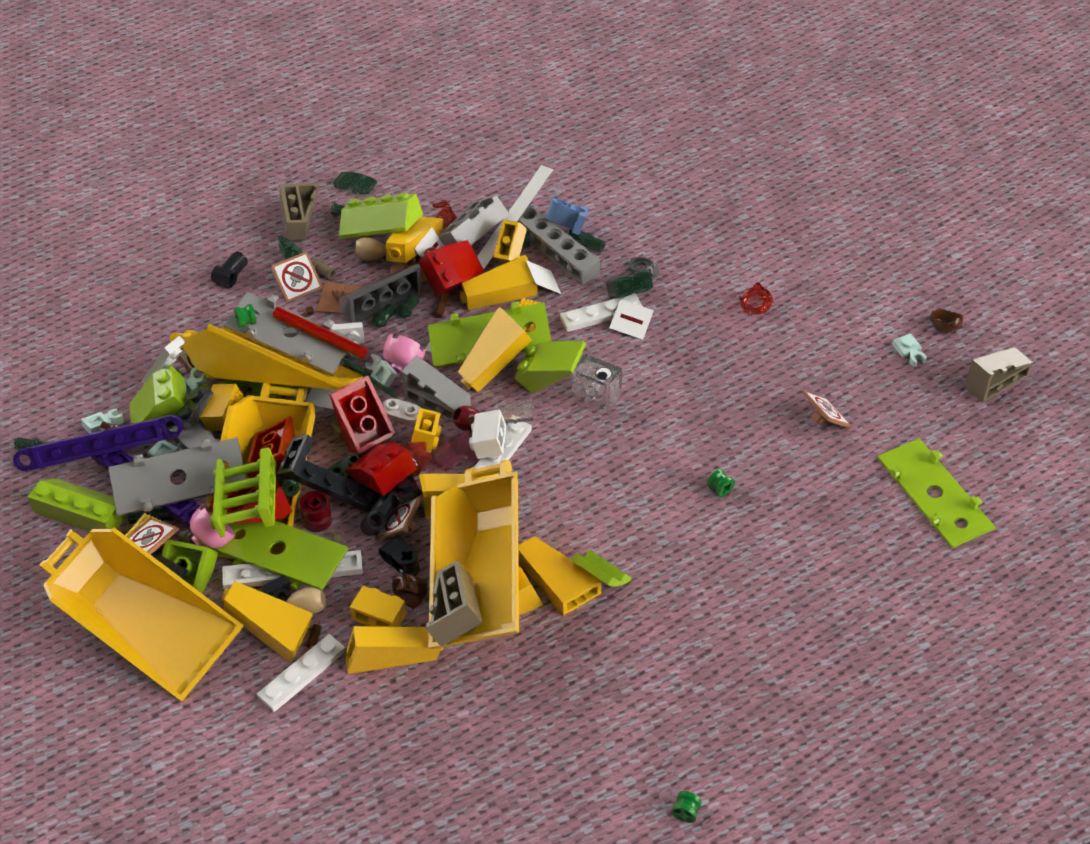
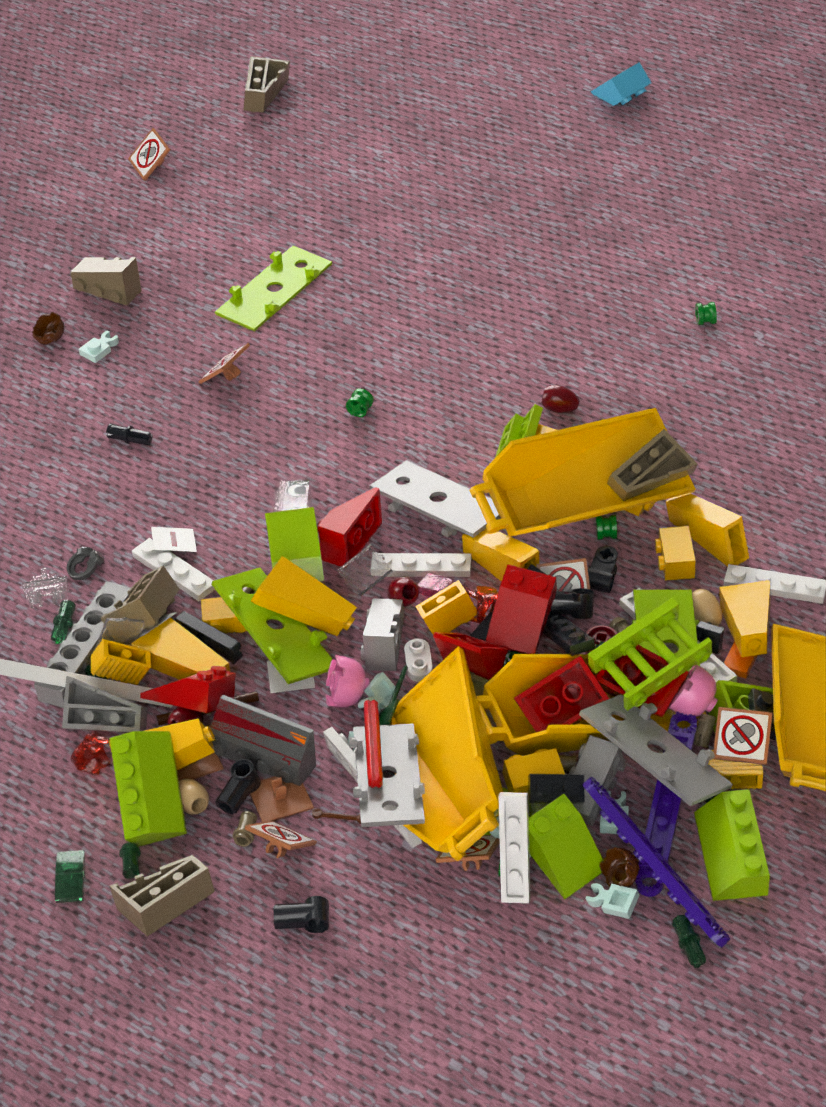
camera: 115 degrees left, 5 degrees down
(245, 315) = (406, 794): green wheel -> none
(288, 248) = (235, 872): clear green slope -> none
(295, 457) = (574, 643): black plate -> none
(356, 272) = (242, 782): none -> black piece
(409, 589) = (636, 553): reddish brown piece -> none
(488, 434) = (421, 555): white brick -> none
(531, 293) = (210, 636): none -> piece
(532, 244) = (121, 630): none -> clear piece
(553, 407) = (349, 527): none -> red slope
(560, 272) = (147, 598): none -> dark tan wedge
(567, 215) = (45, 628): medium blue tile -> none
(577, 478) = (457, 511): none -> piece
(624, 238) = (45, 585): none -> clear hips
(629, 284) = (127, 551): clear green brick -> none
(632, 623) = (559, 399): none -> dark red animal
(756, 290) = (86, 452): clear red piece -> none
(777, 332) = (129, 434): none -> black axle

